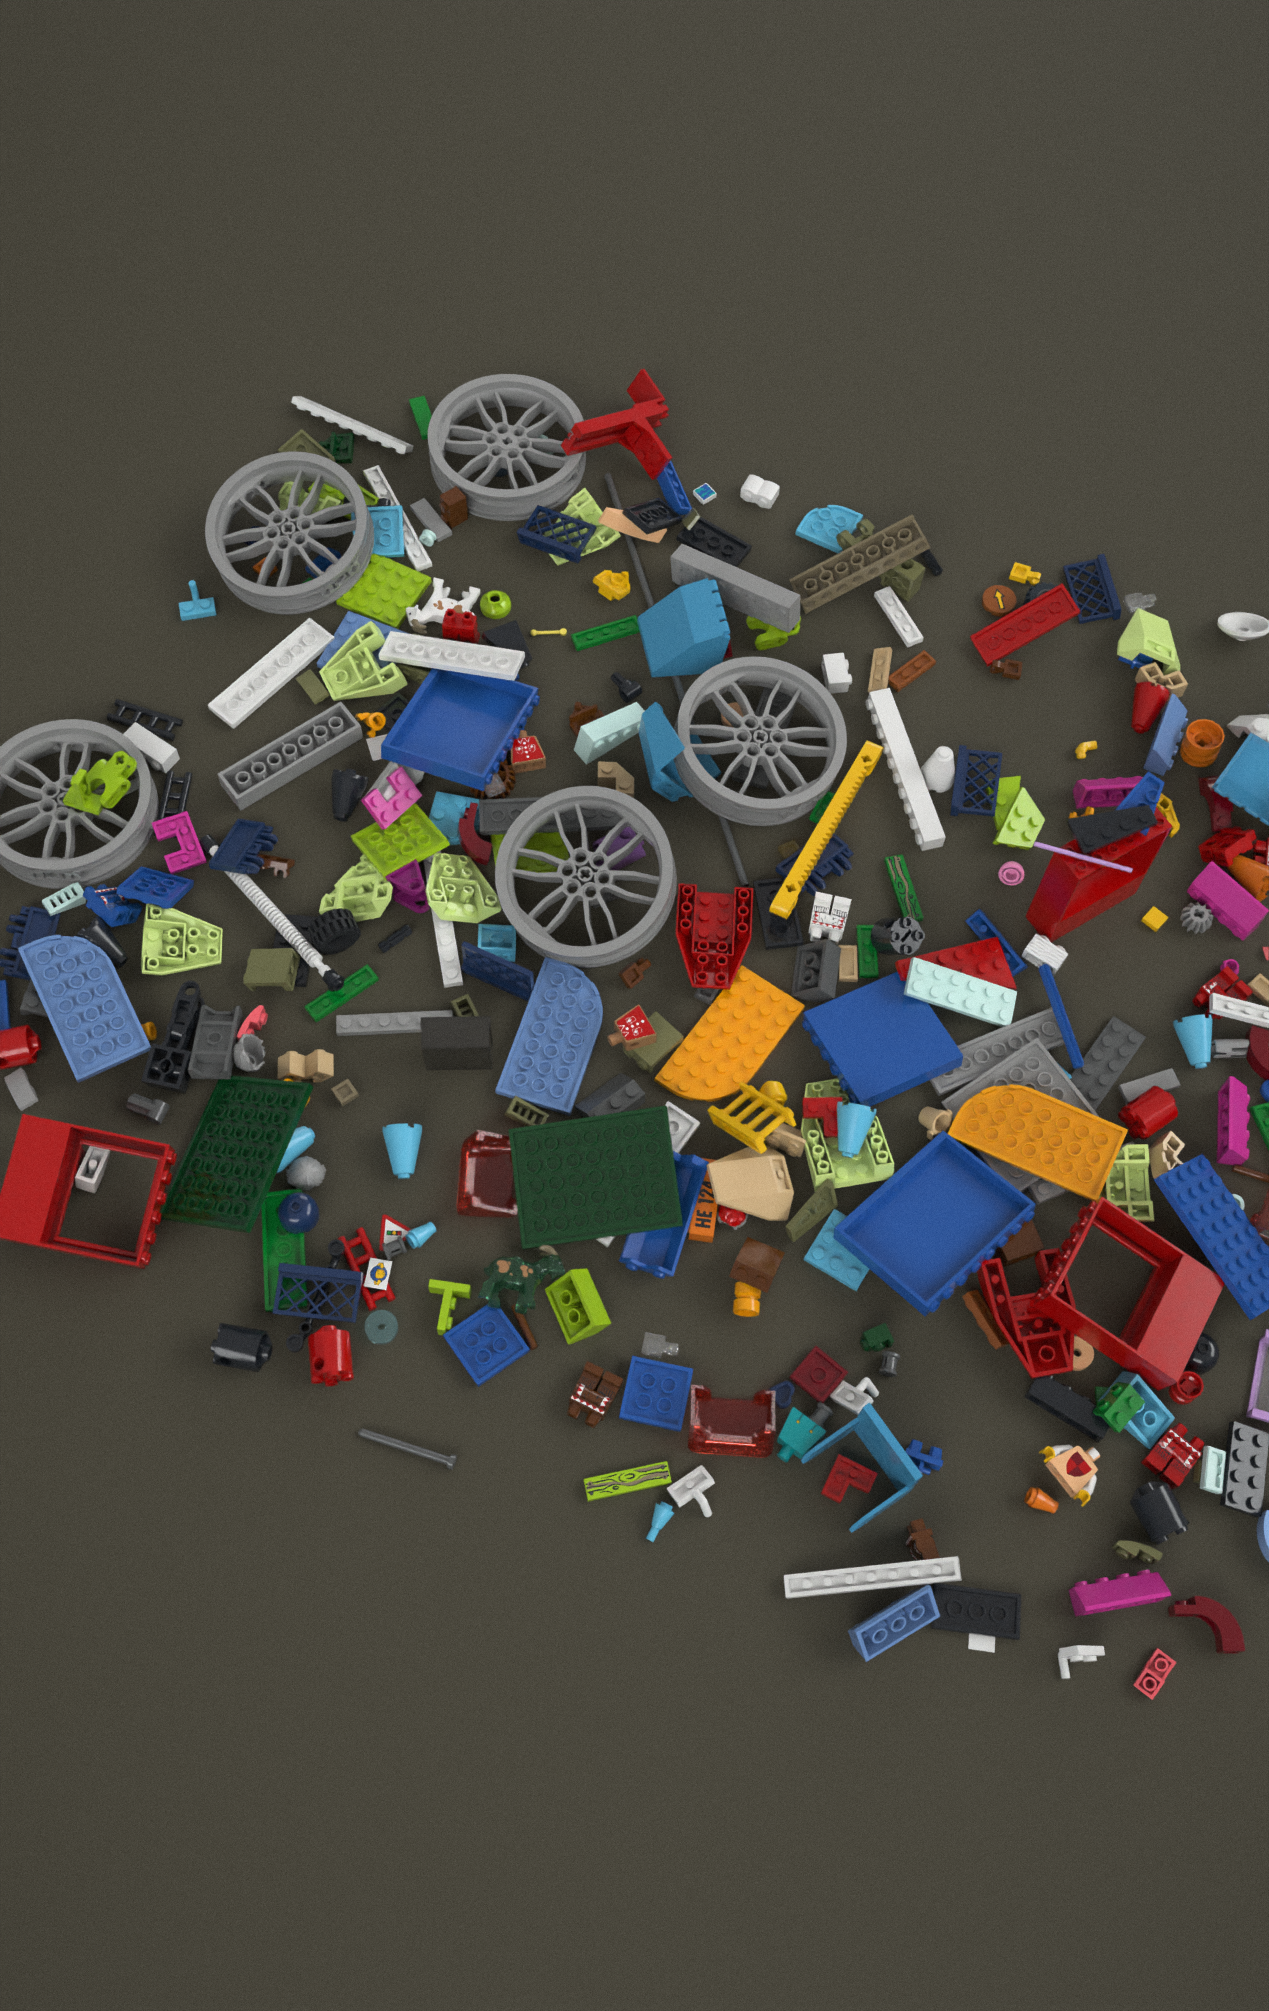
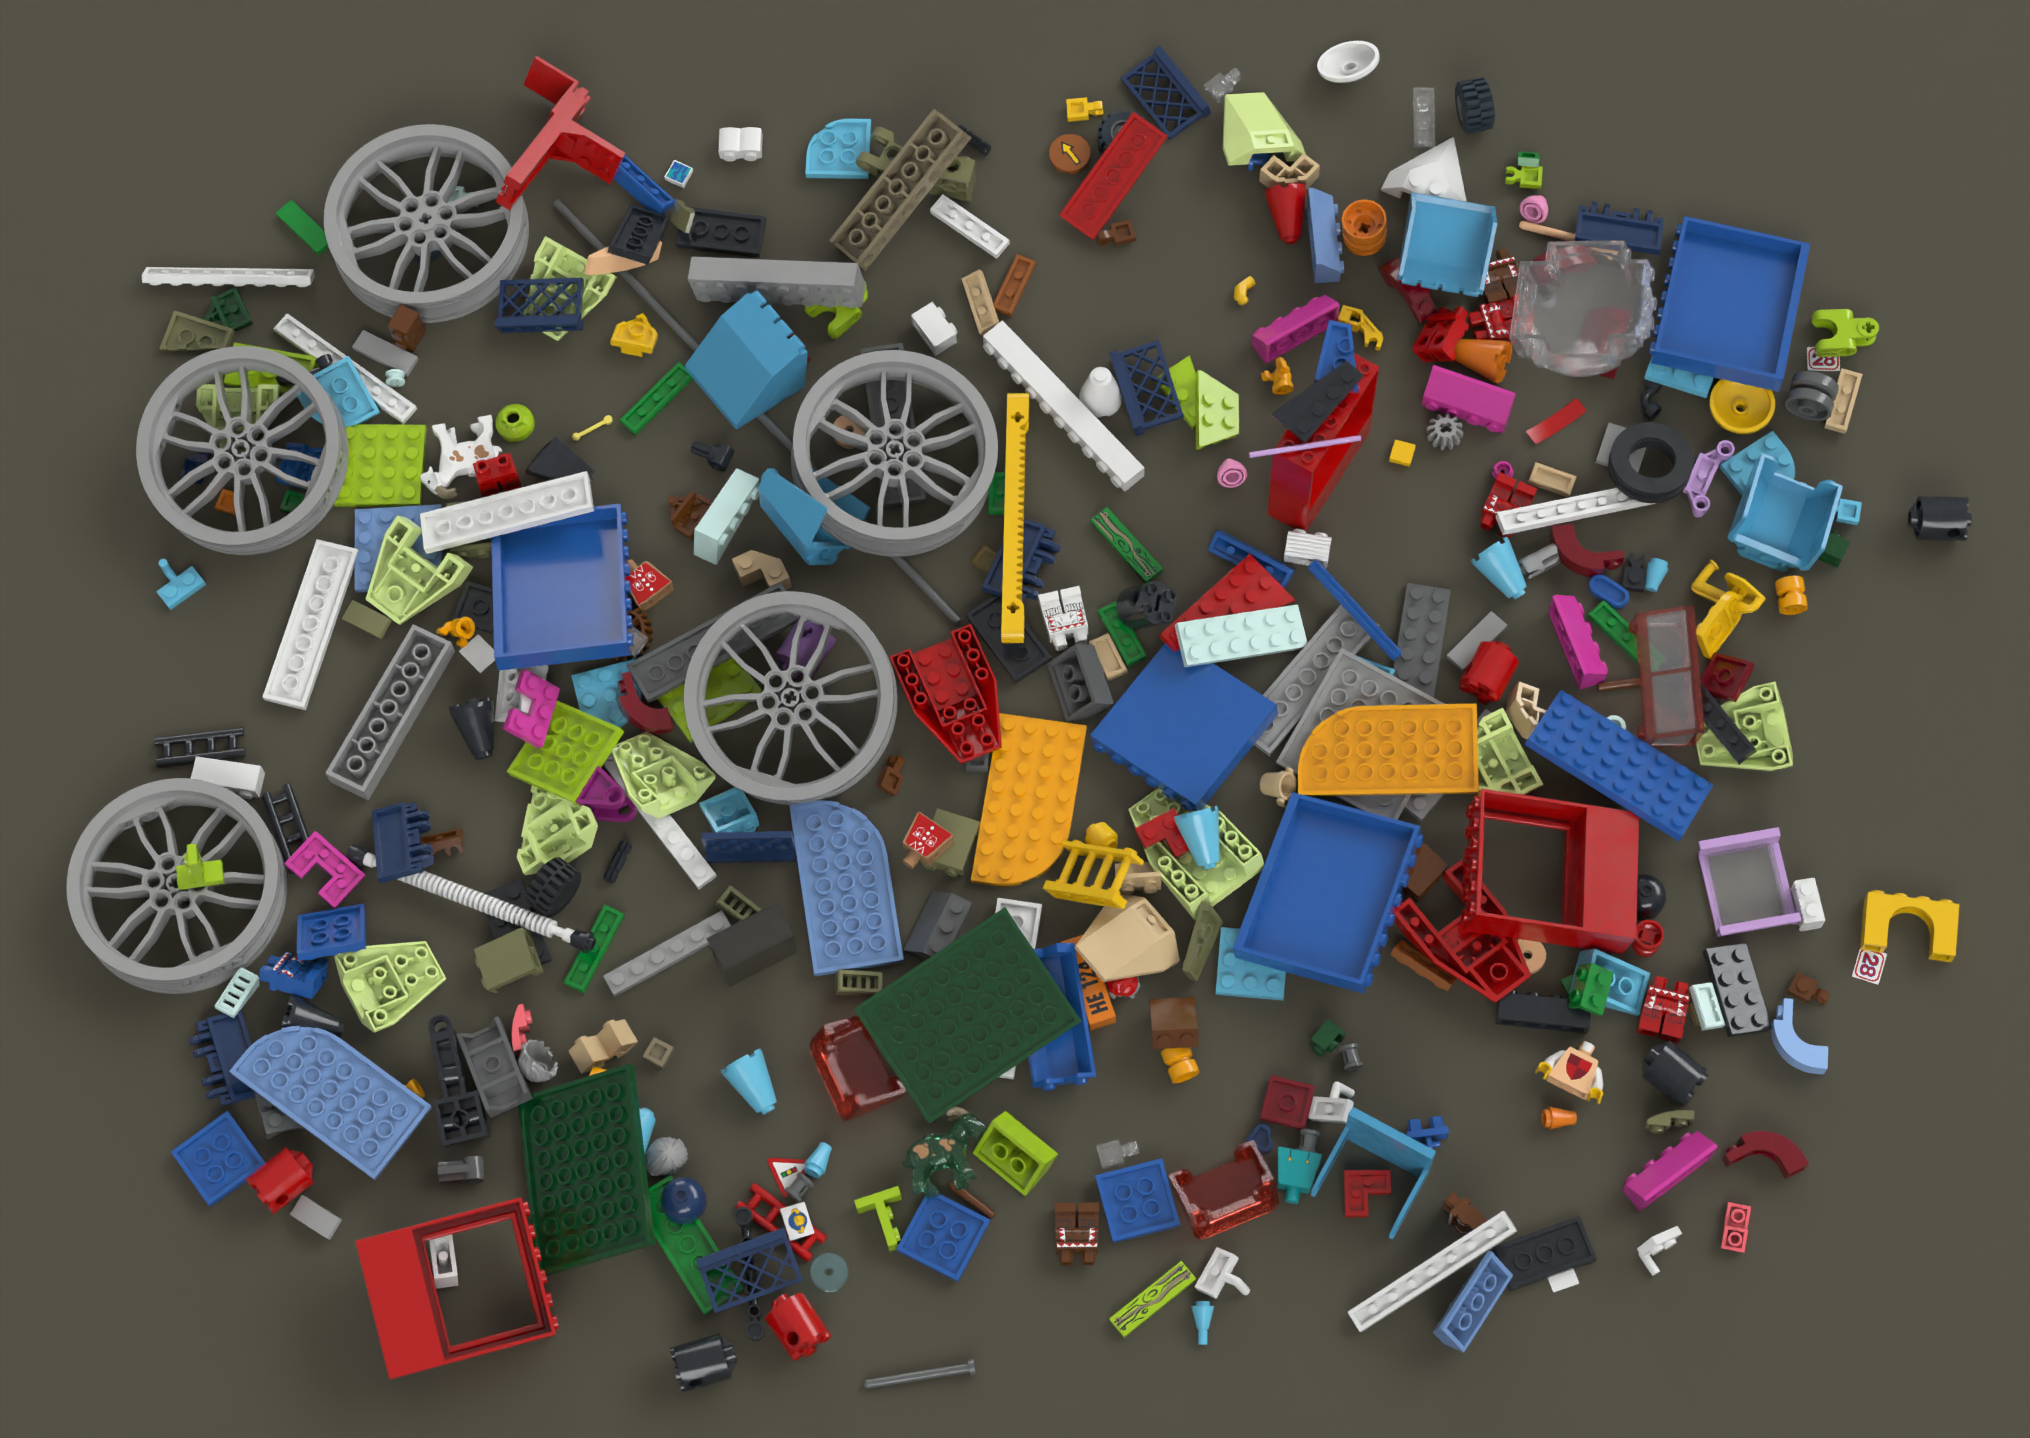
camera: 20 degrees left, 5 degrees up
(114, 775) = (220, 832): lime piece -> none

